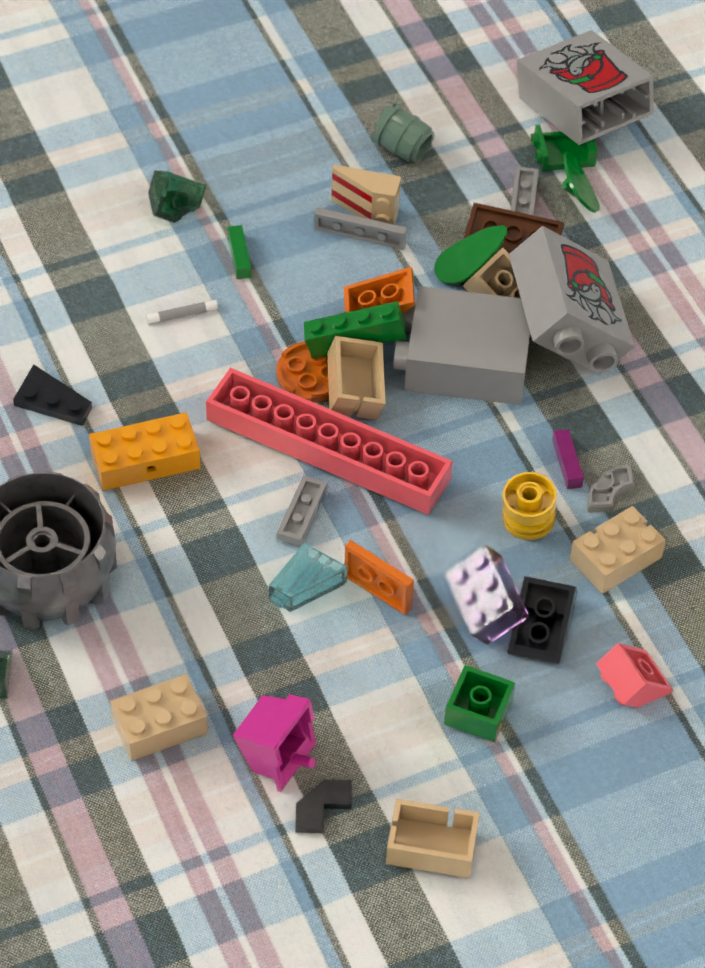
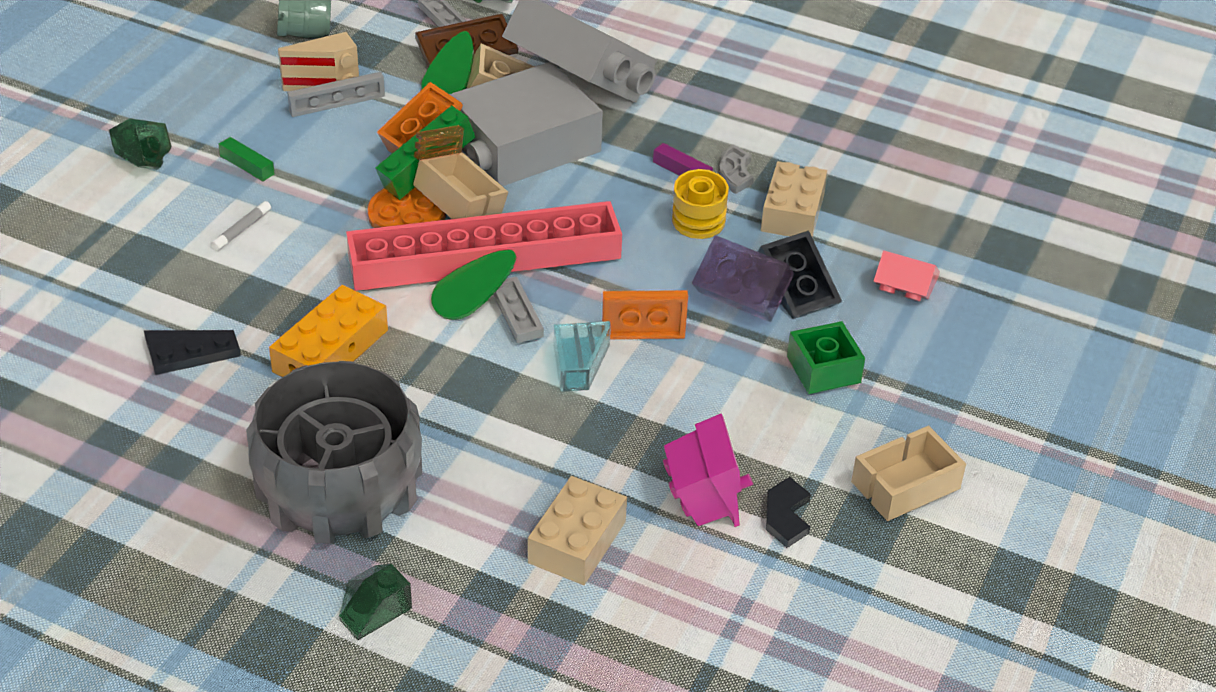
camera: 40 degrees left, 10 degrees down
(286, 469) = (472, 284): none -> green shield
(360, 326) = (439, 138): none -> clear orange tile

